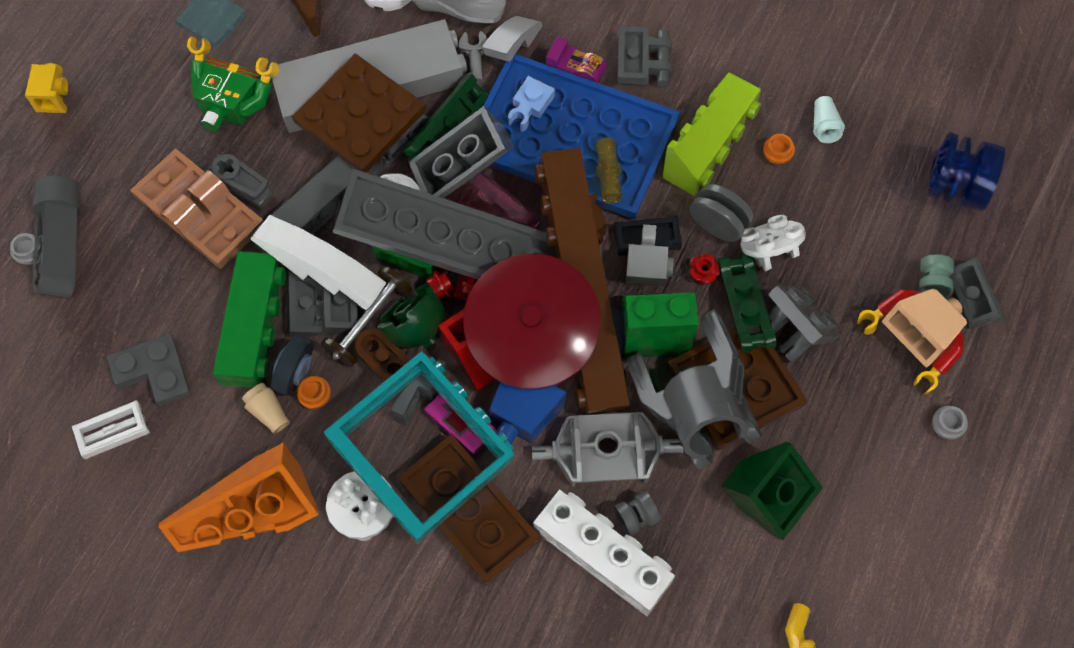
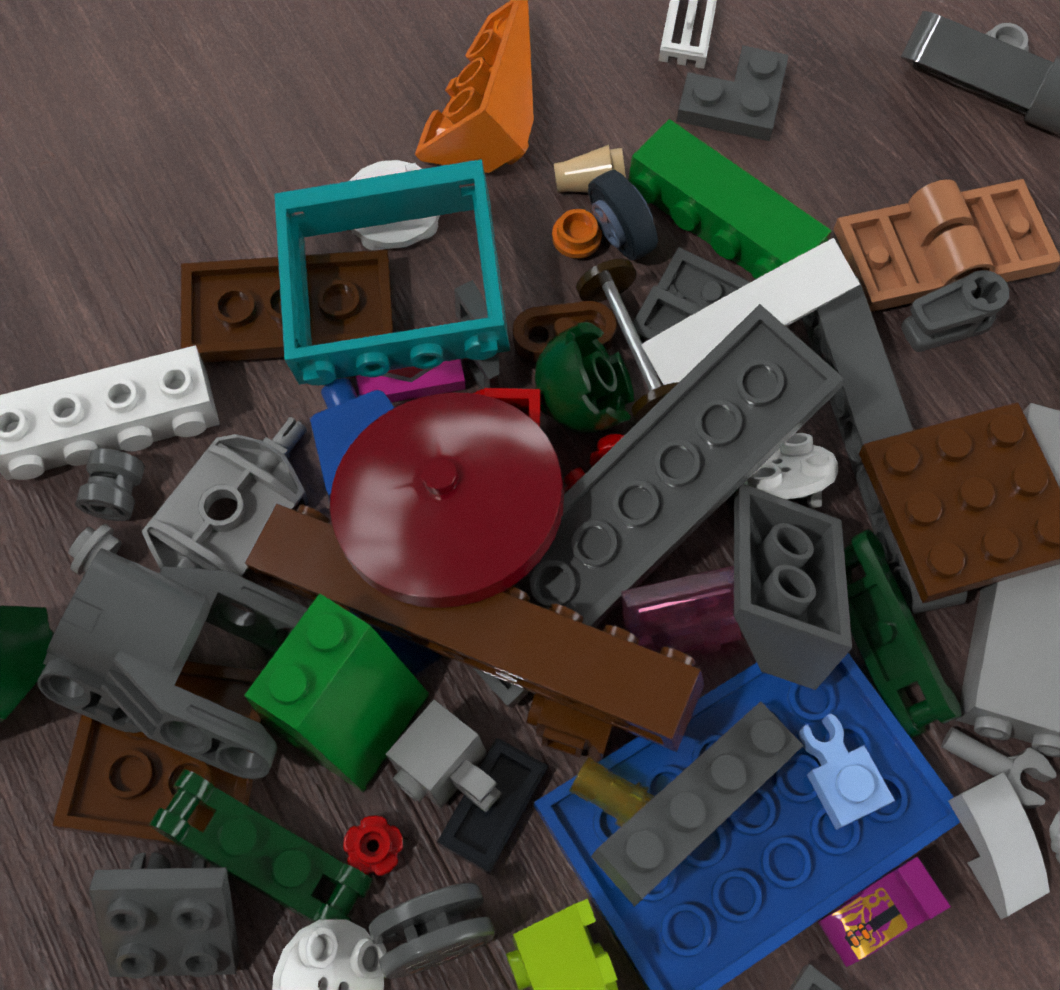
camera: 120 degrees right, 0 degrees up
(595, 140) = (695, 803): none -> dark grey plate
(675, 493) = (89, 543): none -> light grey plate

